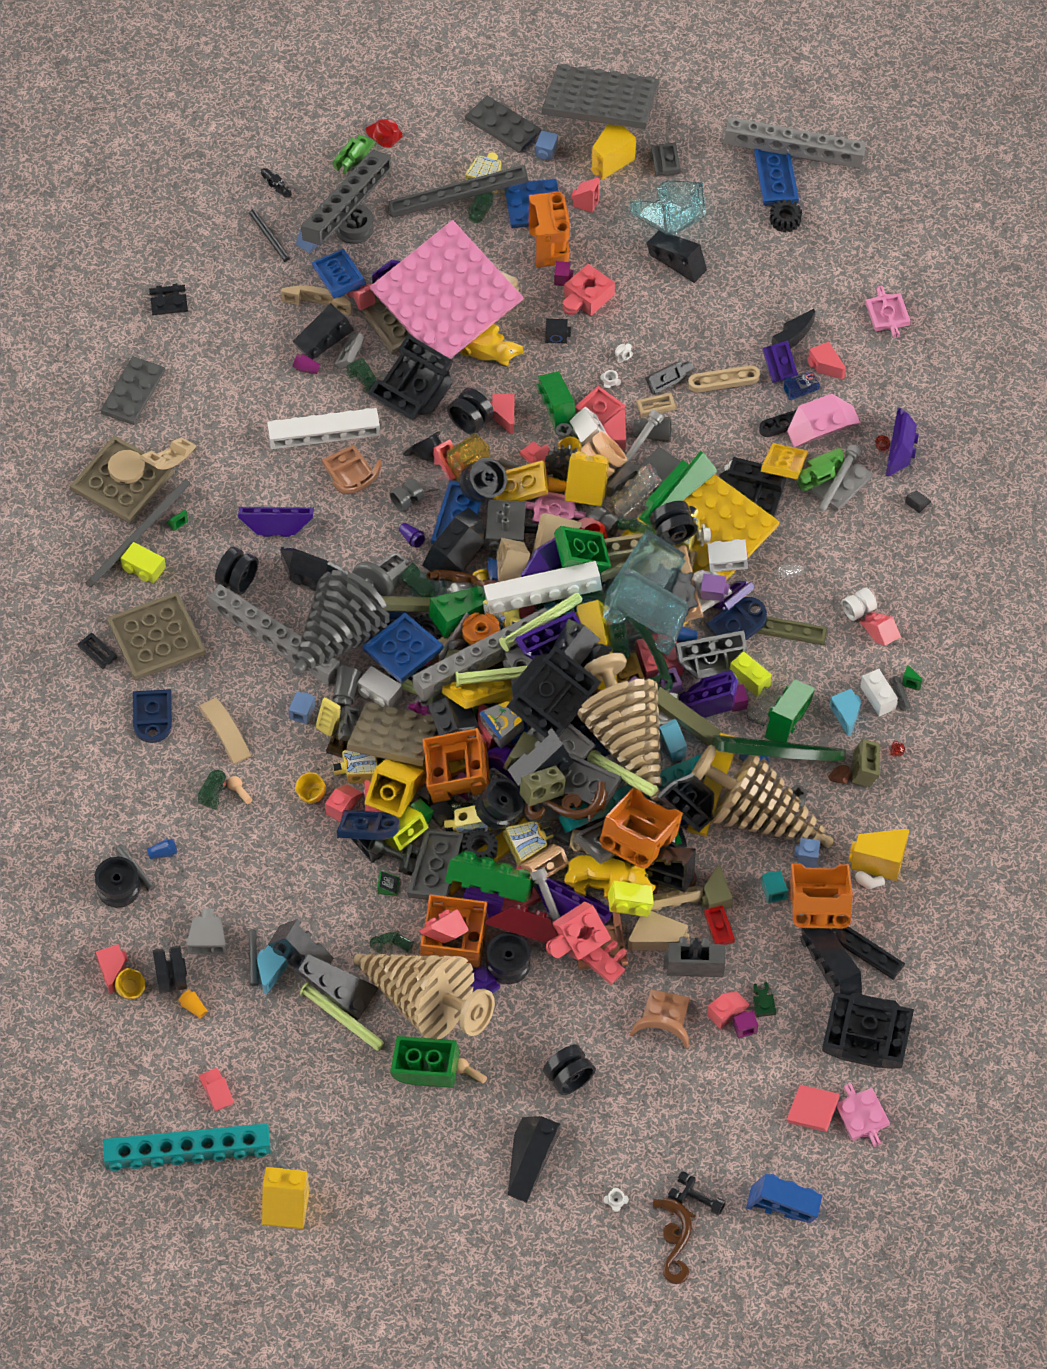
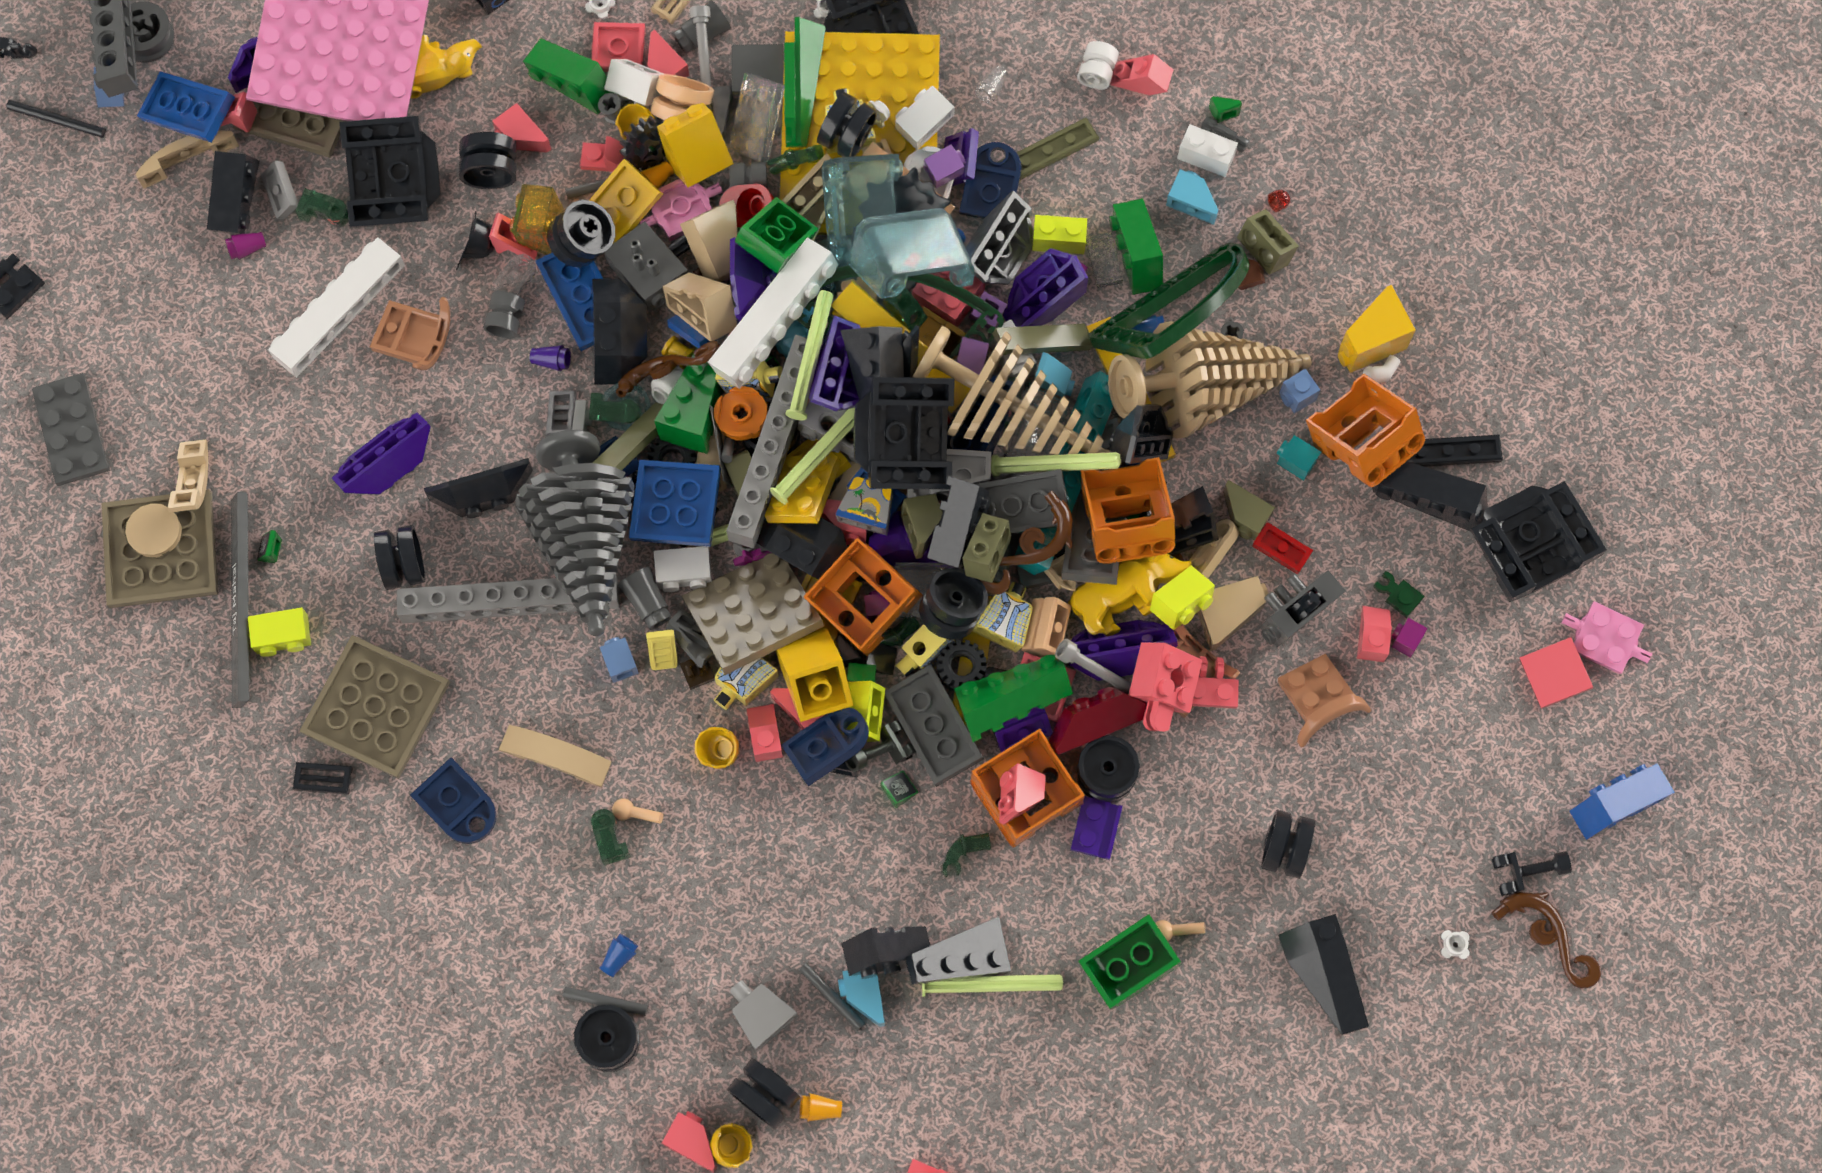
camera: 40 degrees left, 15 degrees up
(431, 991) = (1062, 883): tan plant -> none

